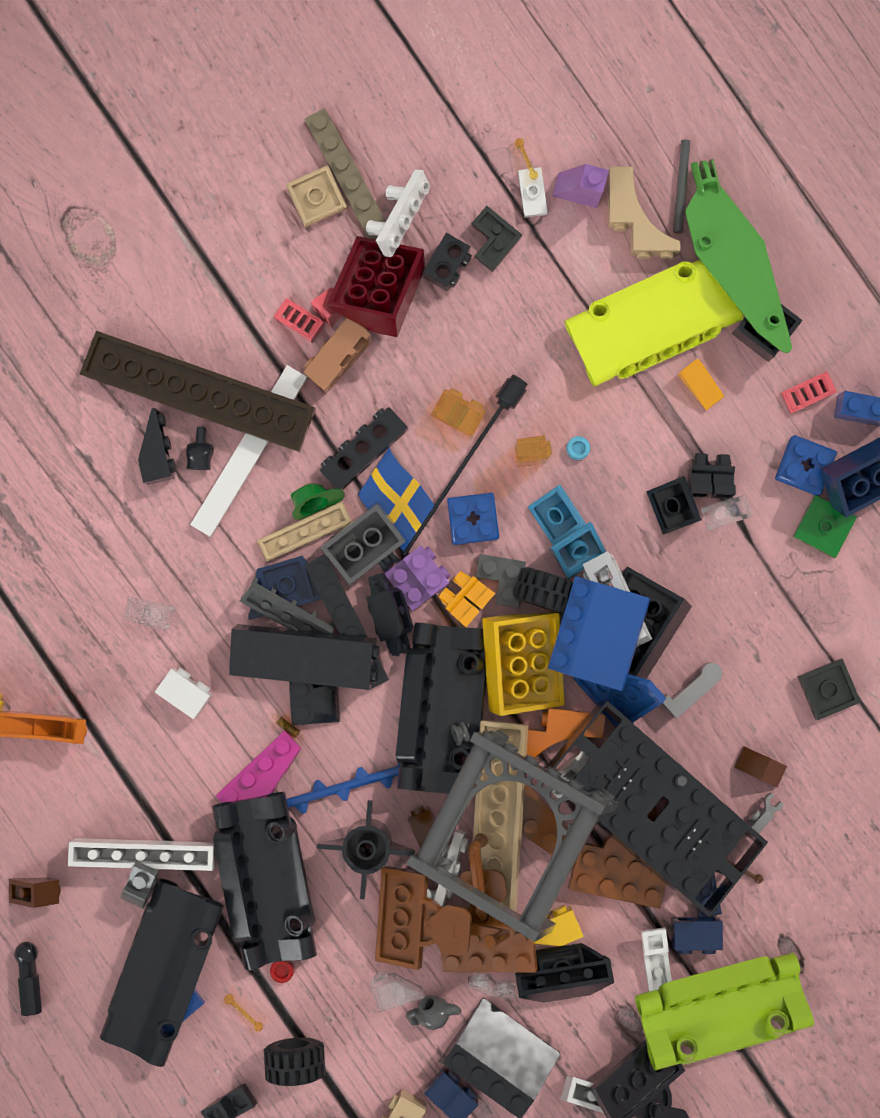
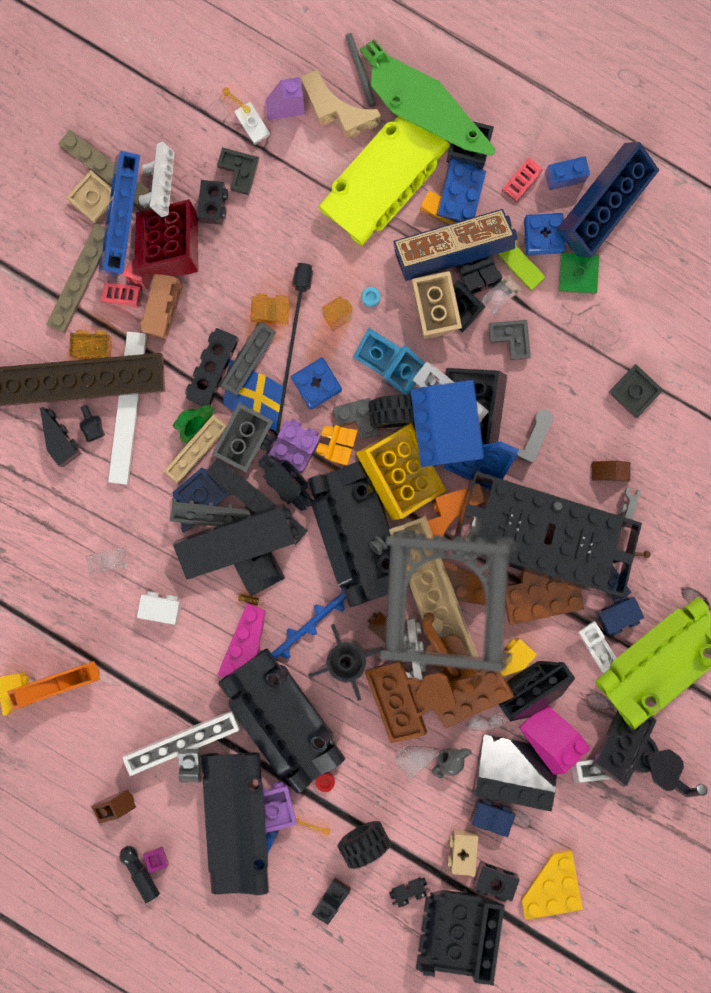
camera: 20 degrees left, 0 degrees up
(54, 972) = (155, 859): none -> magenta plate
(217, 976) = (278, 807): none -> medium lavender plate
(238, 362) = (90, 345): none -> clear yellow brick
(261, 281) = (78, 281): none -> dark tan plate
(338, 231) = (119, 213): none -> blue fence
(408, 456) = (247, 358): none -> dark grey hinge
(560, 1041) = (554, 740): none -> dark pink slope
(647, 492) = (436, 305): none -> tan slope
(699, 433) = (455, 244): none -> brick
(722, 564) = (513, 332): none -> dark grey plate
(732, 376) = (460, 191): none -> blue plate
(762, 485) = (522, 267): none -> lime tile

